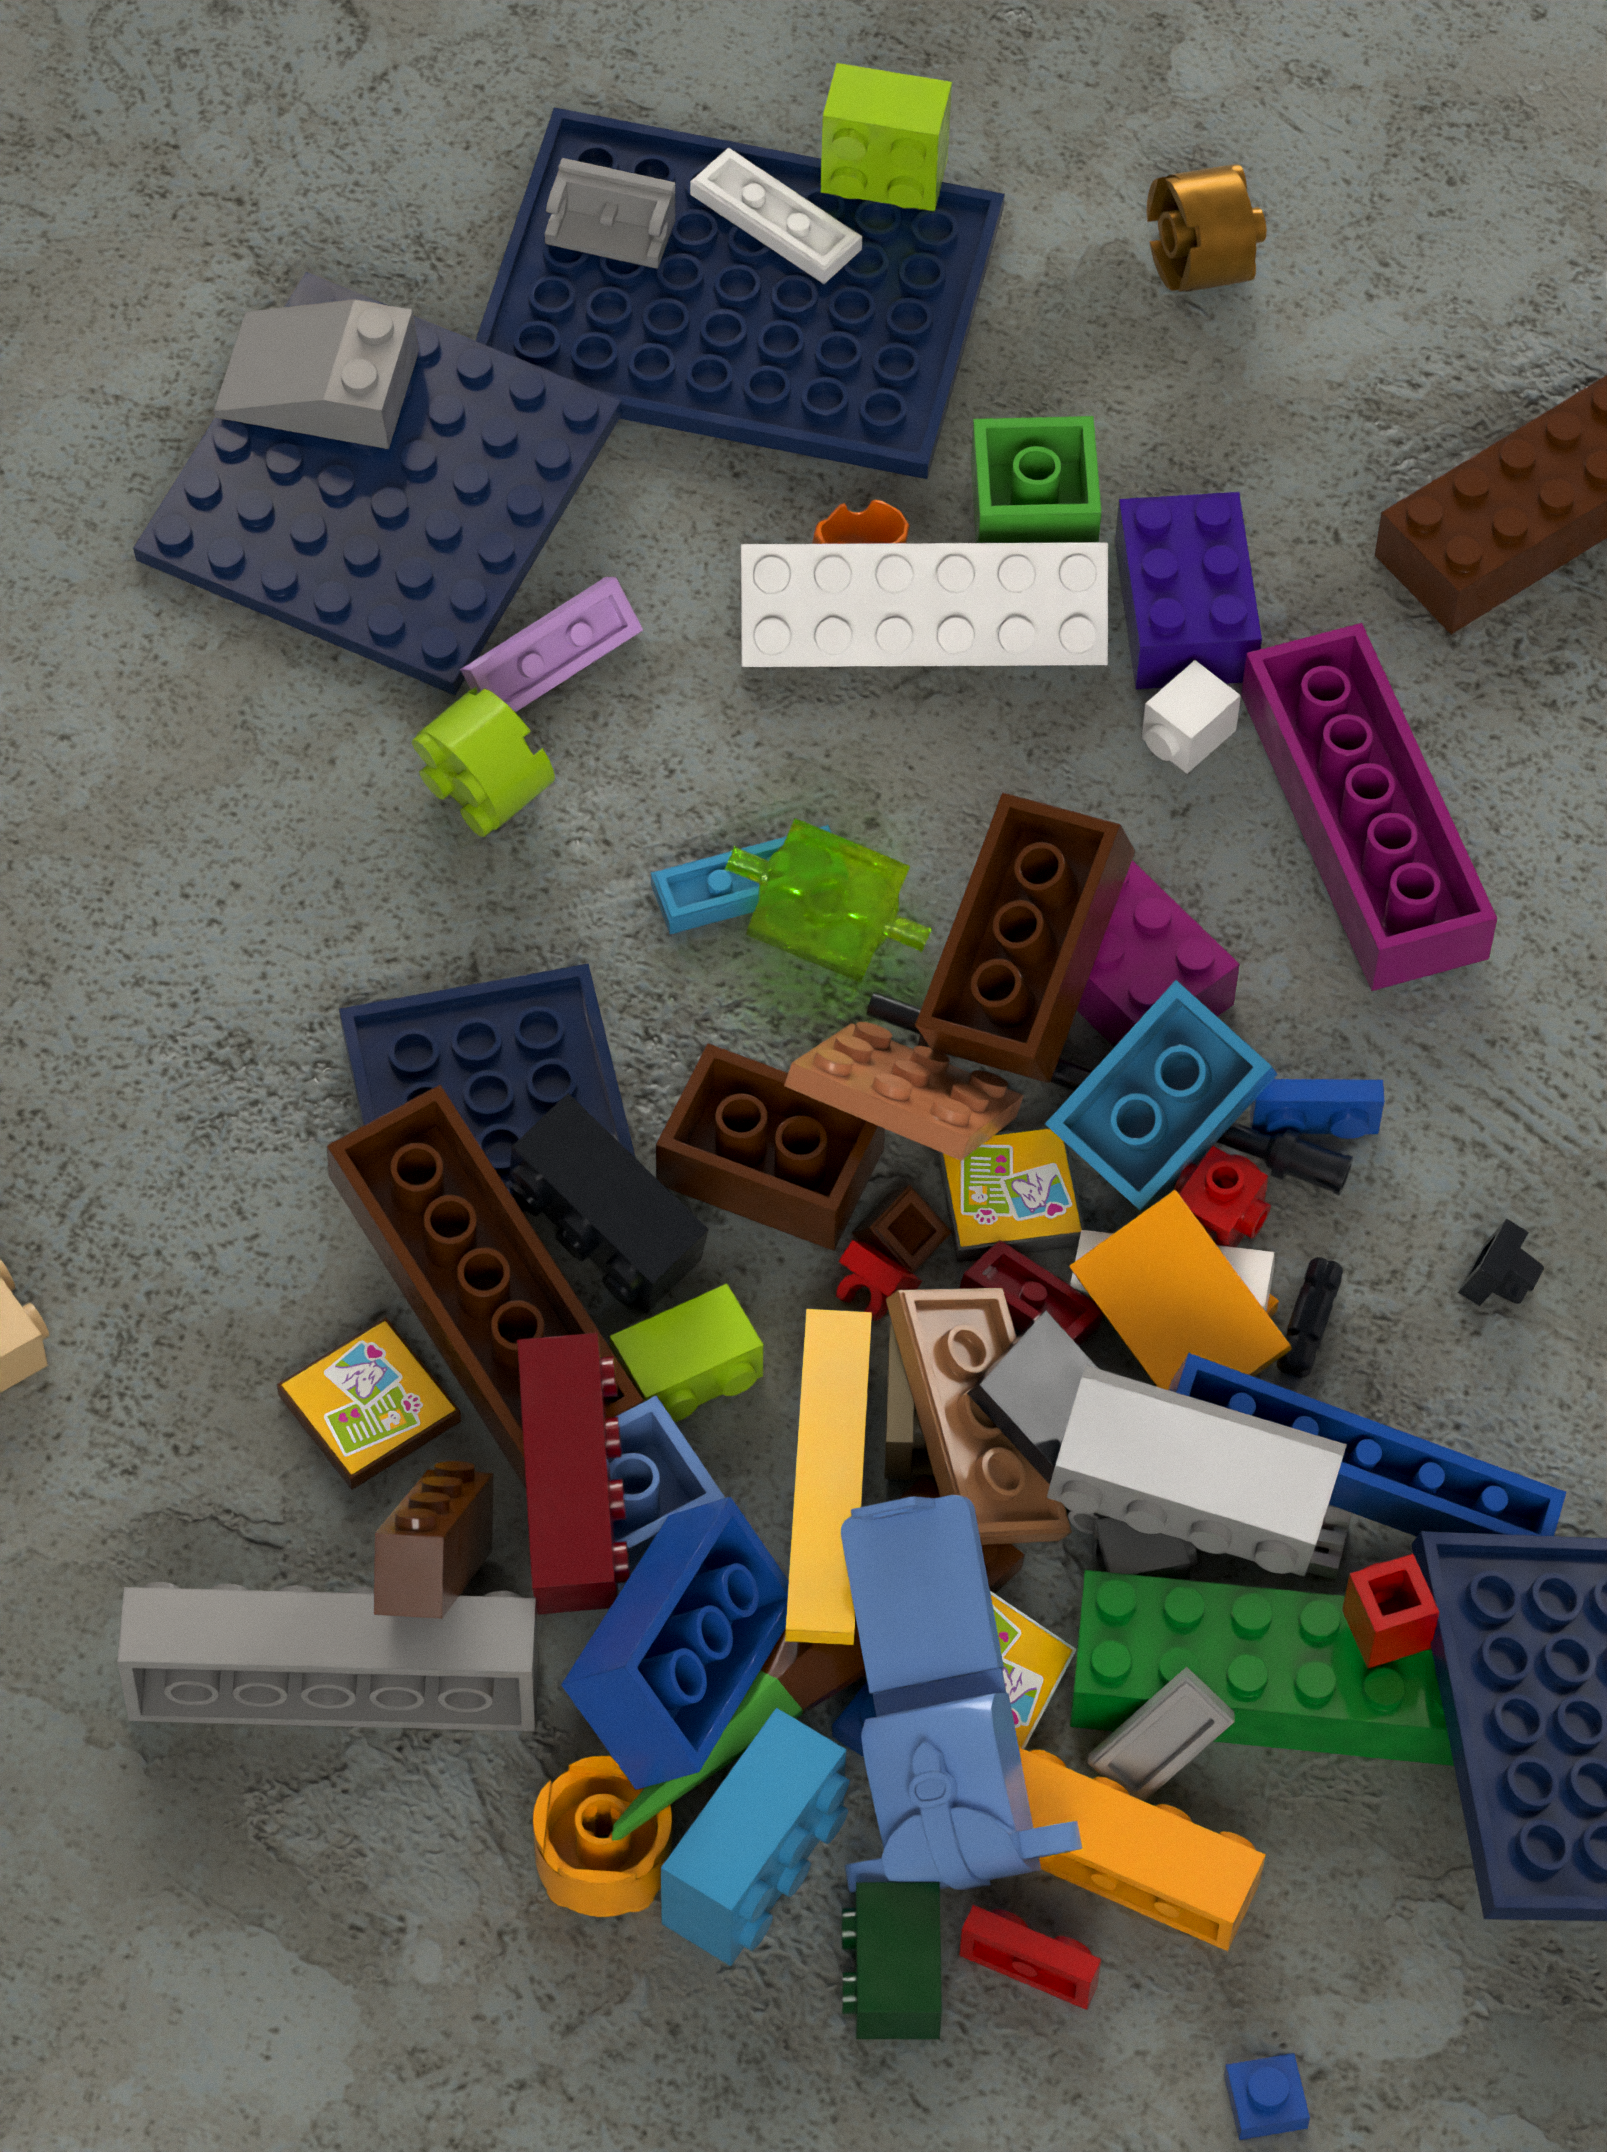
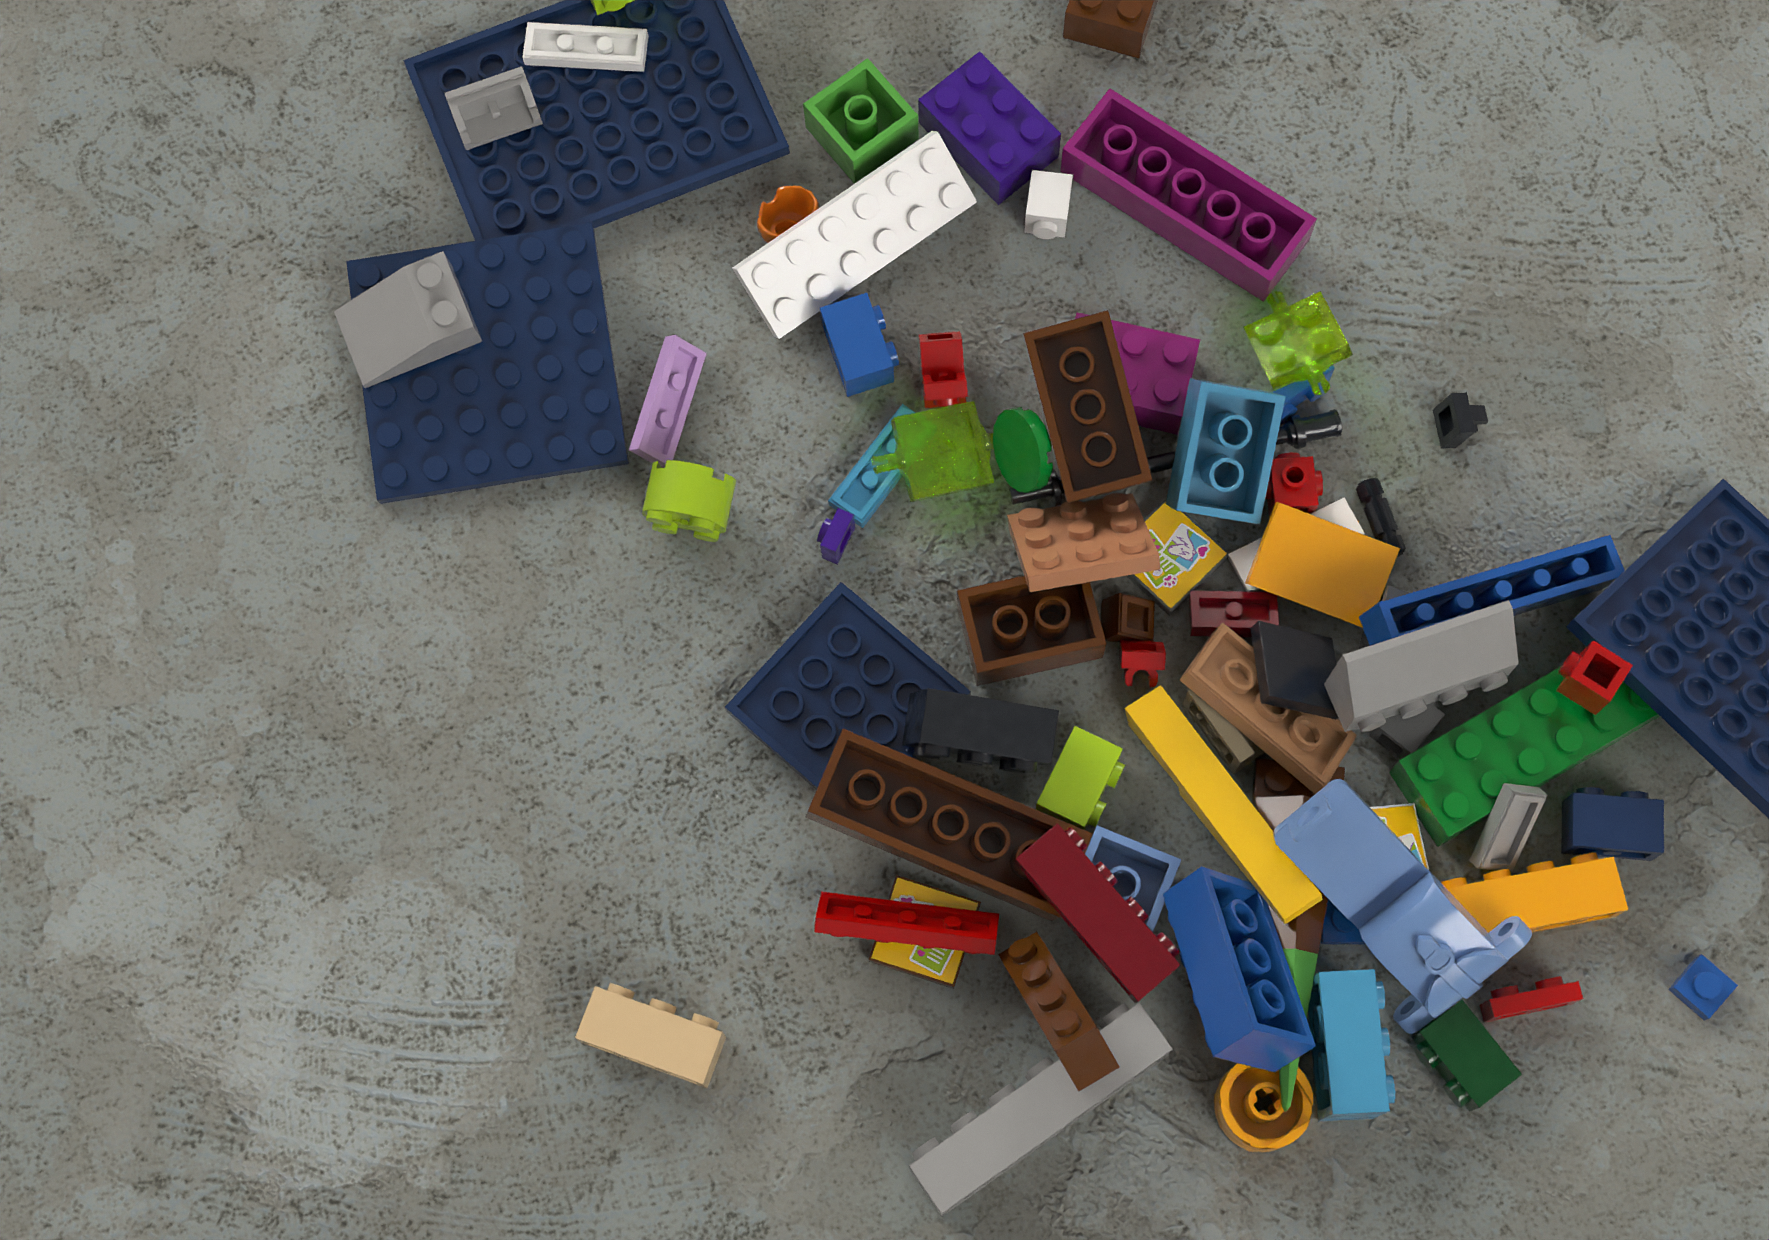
camera: 30 degrees left, 15 degrees up
(353, 1366) = (907, 923): none -> red plate
(626, 914) = (835, 535): none -> dark purple plate
(828, 727) = (858, 344): none -> blue brick
(905, 813) = (942, 369): none -> red brick
(914, 943) = (1022, 449): none -> green tile
(1308, 1835) = (1613, 825): none -> dark blue brick
(1362, 1044) = (1298, 341): none -> clear neon green plate

